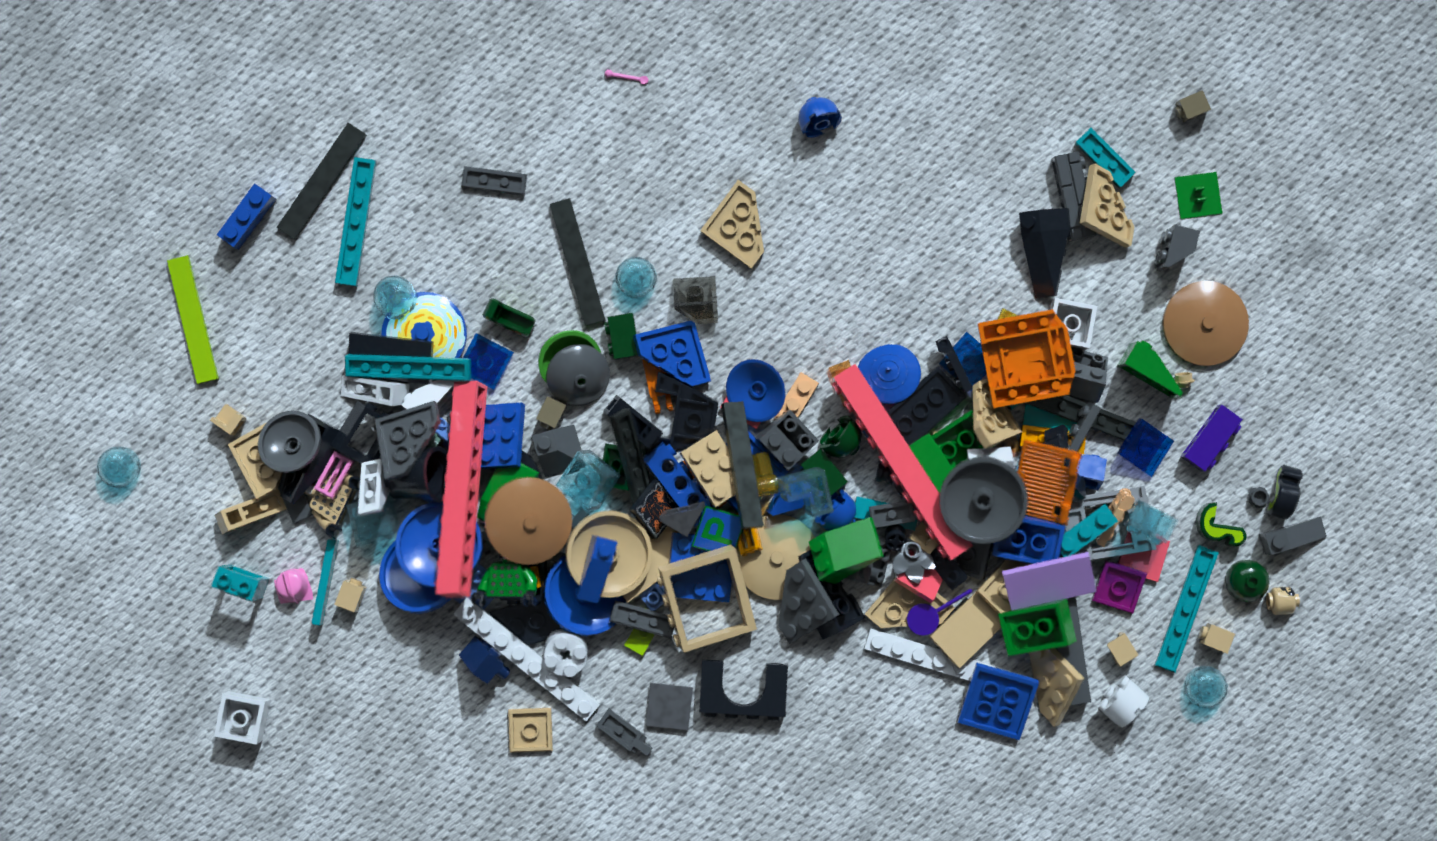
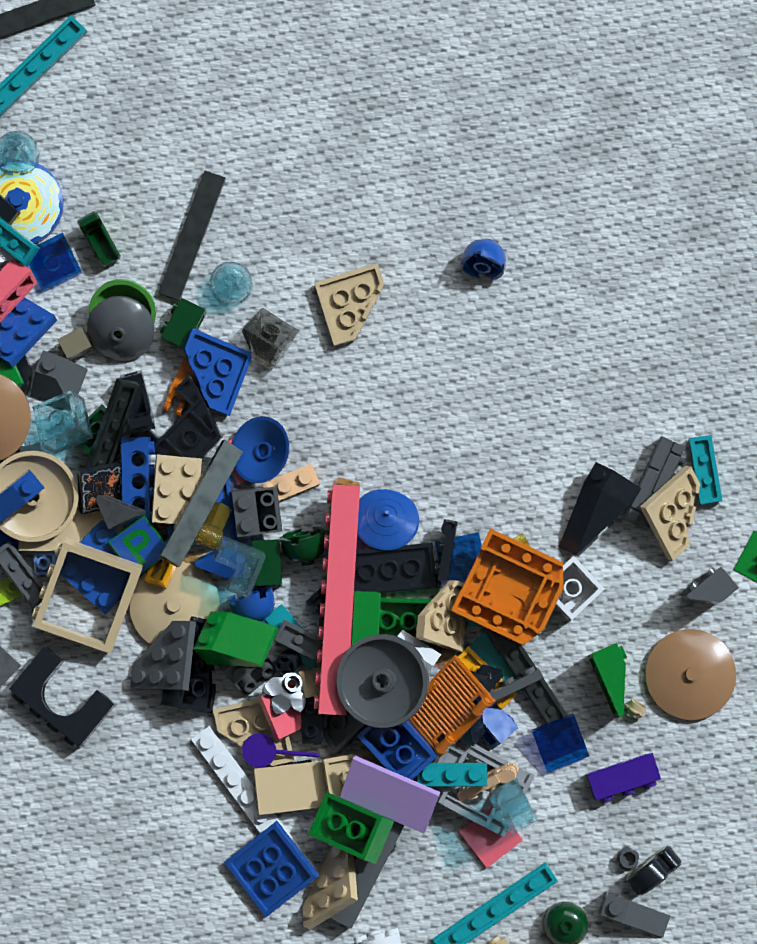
camera: 30 degrees right, 5 degrees down
(494, 180) = (173, 118): dark grey tile -> none
(644, 79) = (360, 124): bright pink hinge -> none
(1089, 375) = (554, 642): dark grey slope -> none
(1119, 586) = (450, 847): magenta tile -> none
(1122, 649) = (411, 903): tan panel -> none
(1215, 532) = (565, 859): dark green animal -> none

